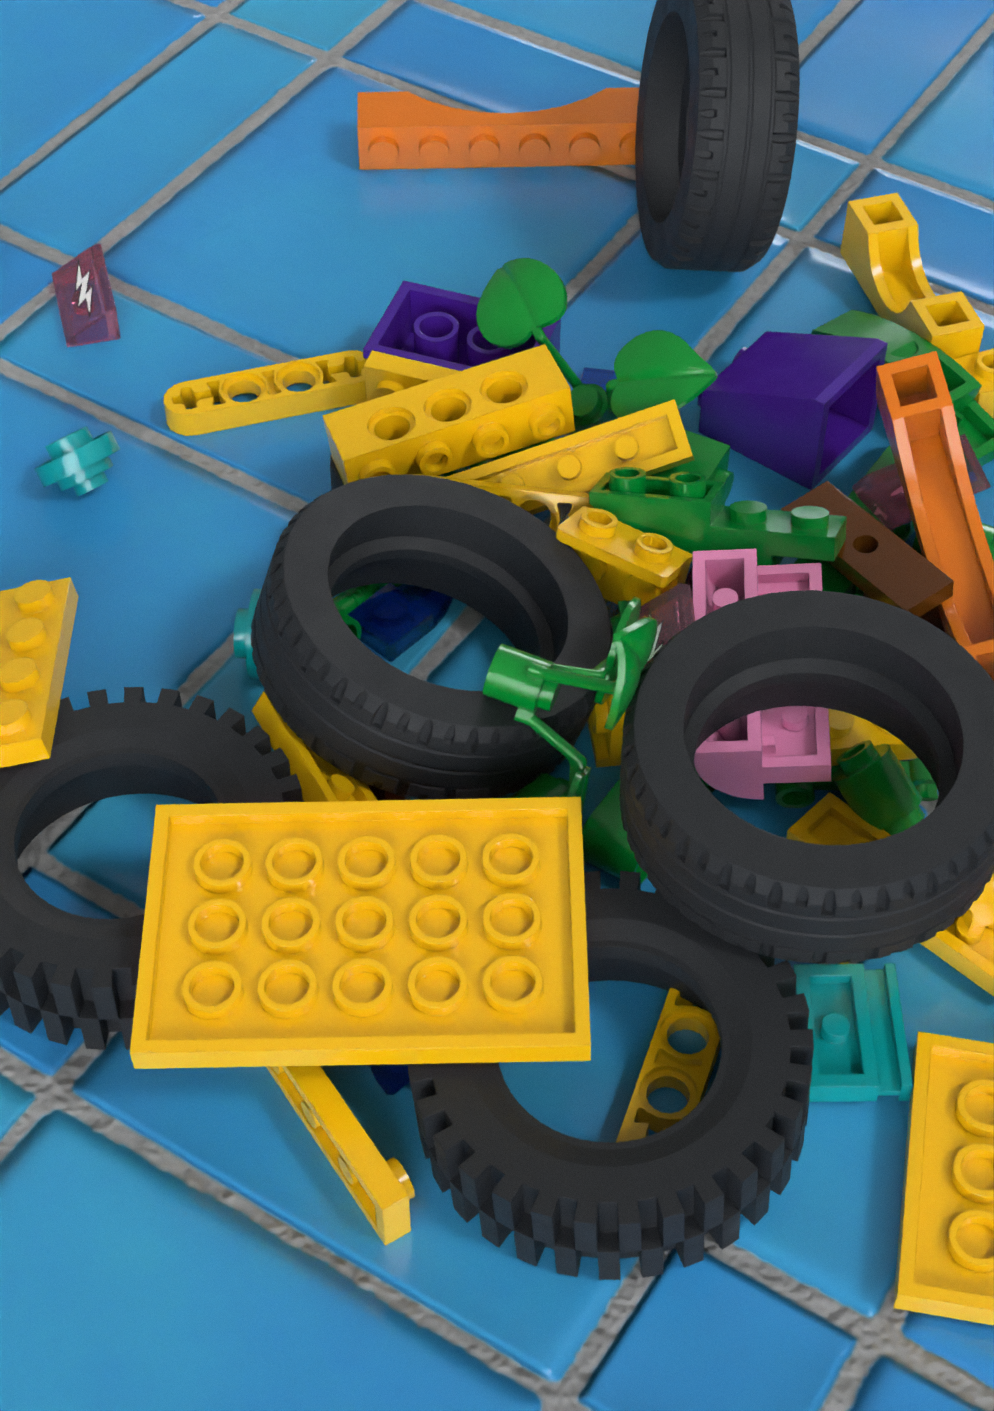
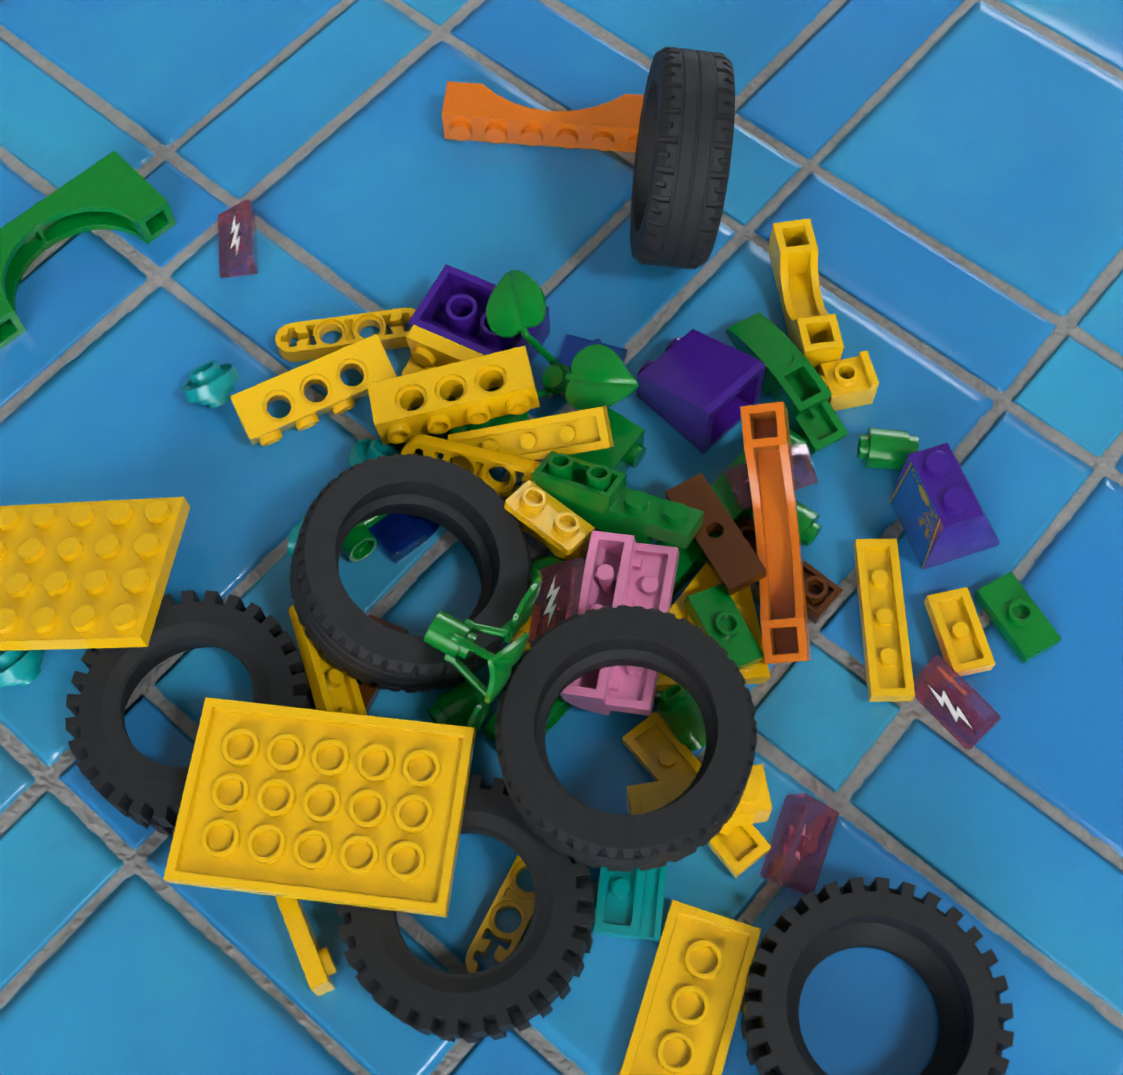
camera: 10 degrees right, 15 degrees up
(200, 448) = (252, 404): none -> yellow brick

